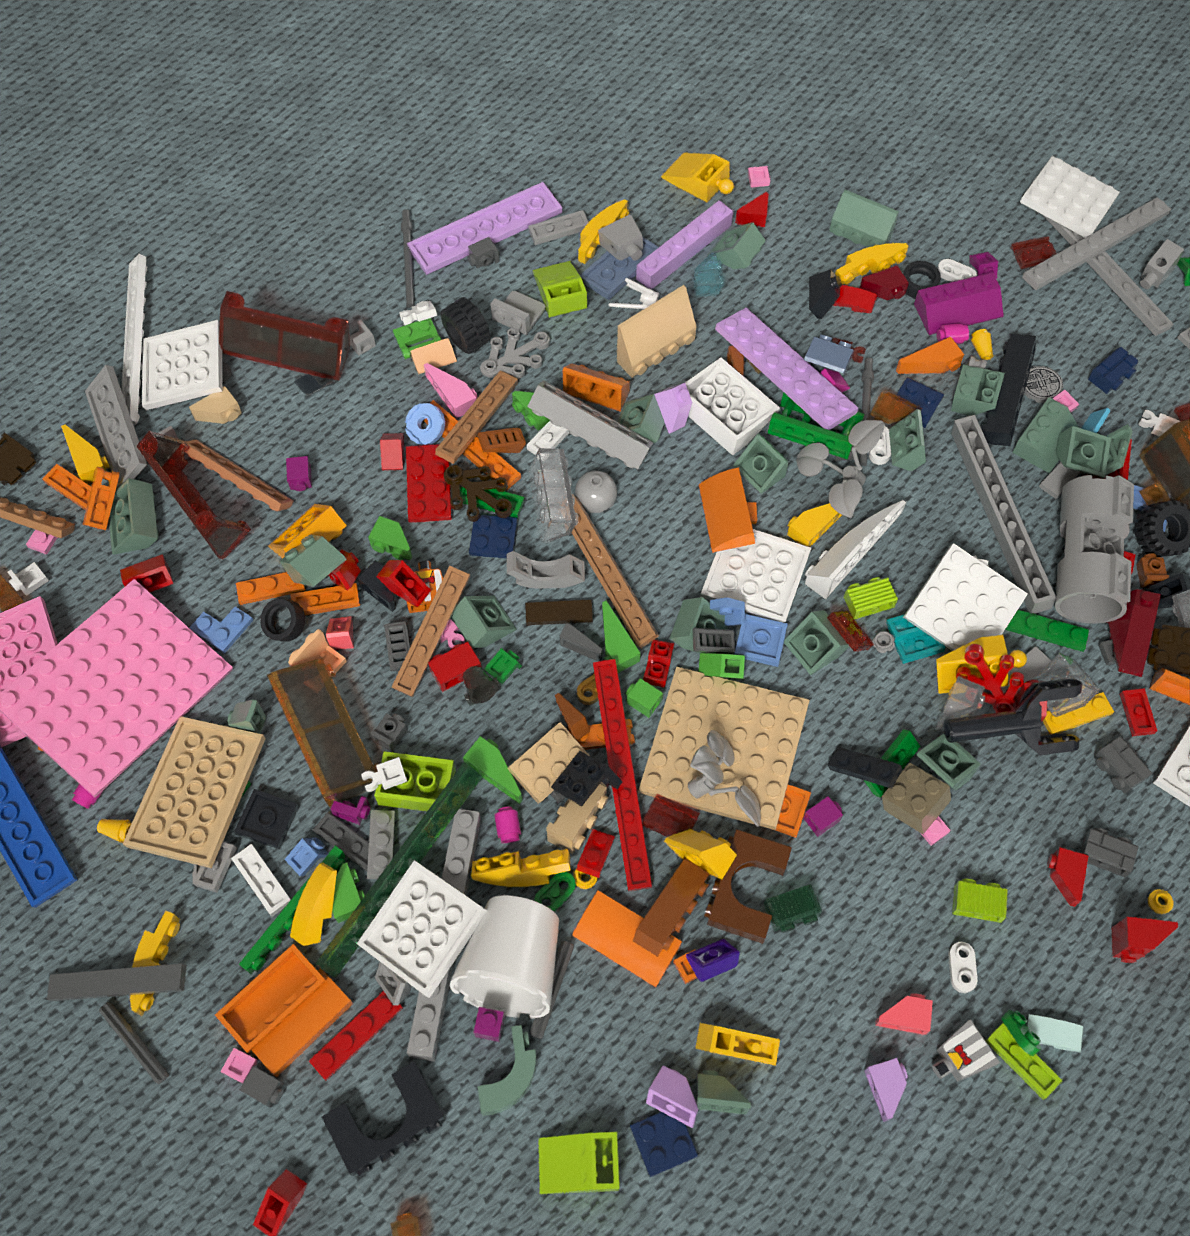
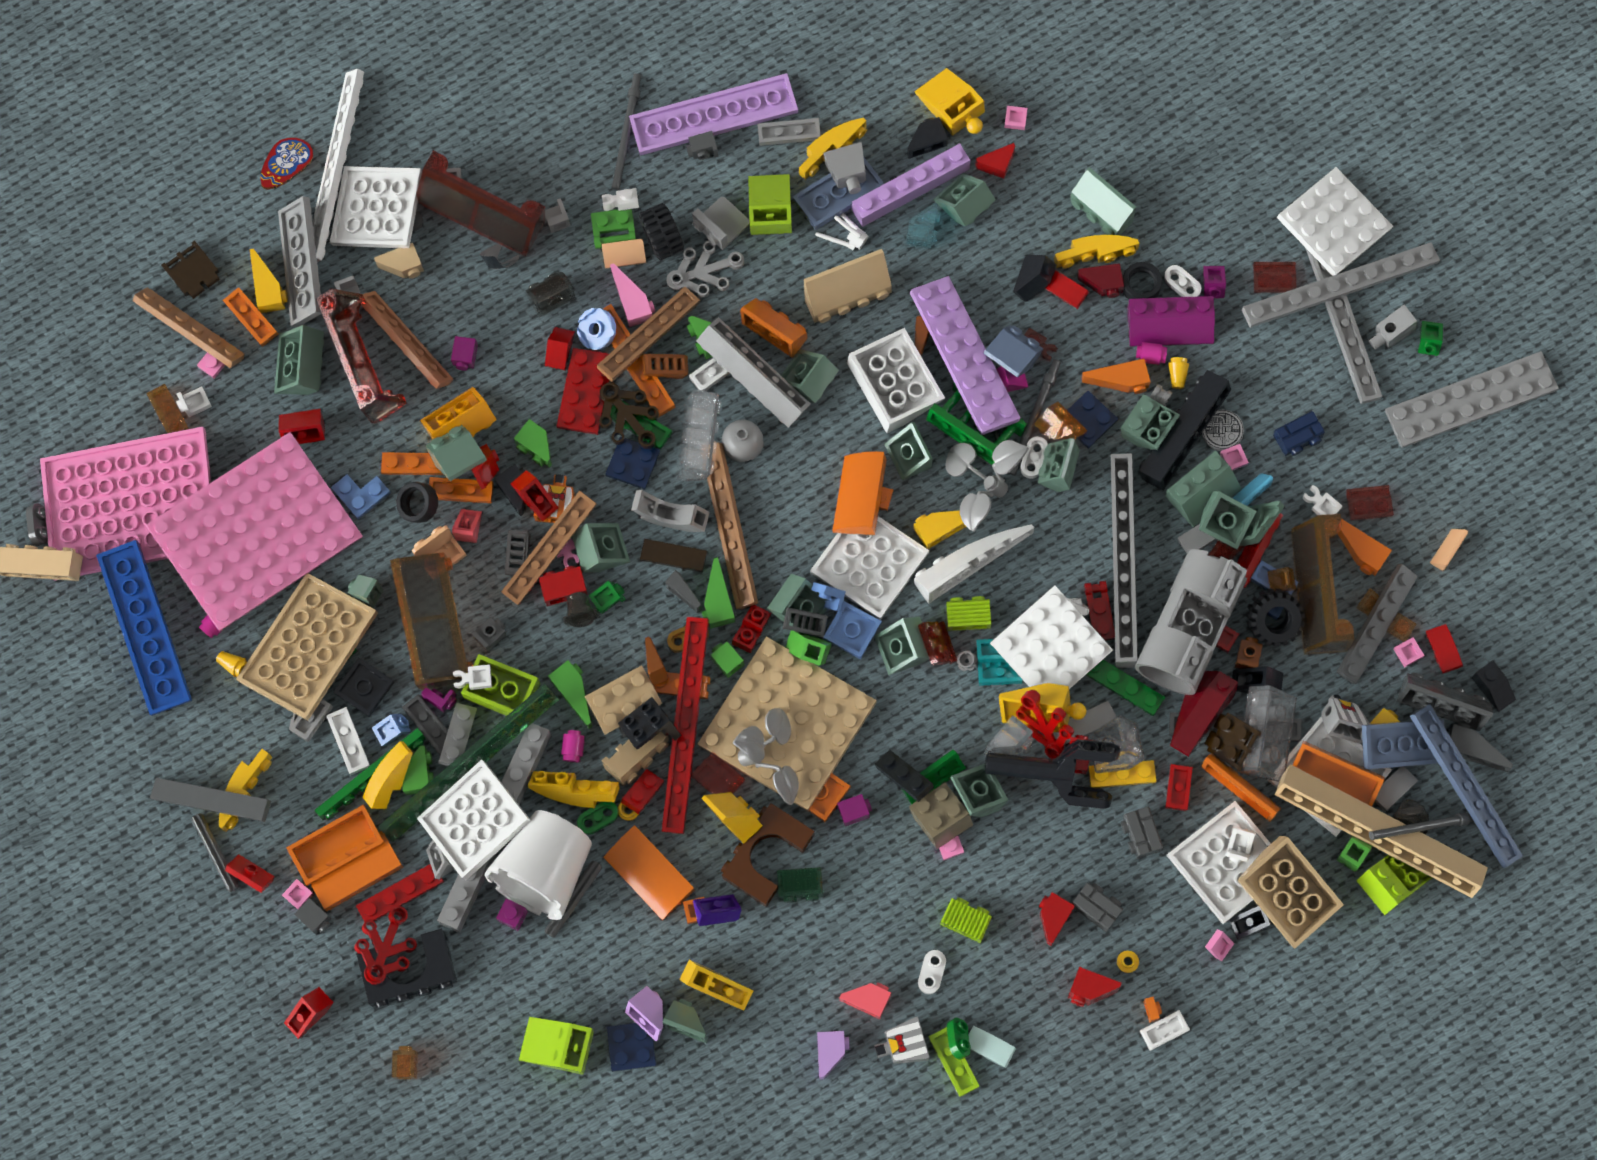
camera: 20 degrees right, 10 degrees up
(83, 346) = (285, 162): none -> shield
(100, 499) = (273, 337): orange plate -> none
(178, 1056) = (249, 873): none -> red plate
(353, 1103) = (384, 948): none -> red plant
(372, 403) = (550, 293): none -> clear smoke slope
(506, 1093) = (520, 970): sand green arch -> none
(671, 907) = (693, 856): dark orange brick -> none
(674, 406) = (841, 370): lavender slope -> none
(688, 205) = (927, 138): none -> black slope
(995, 560) = (1100, 610): none -> red plate

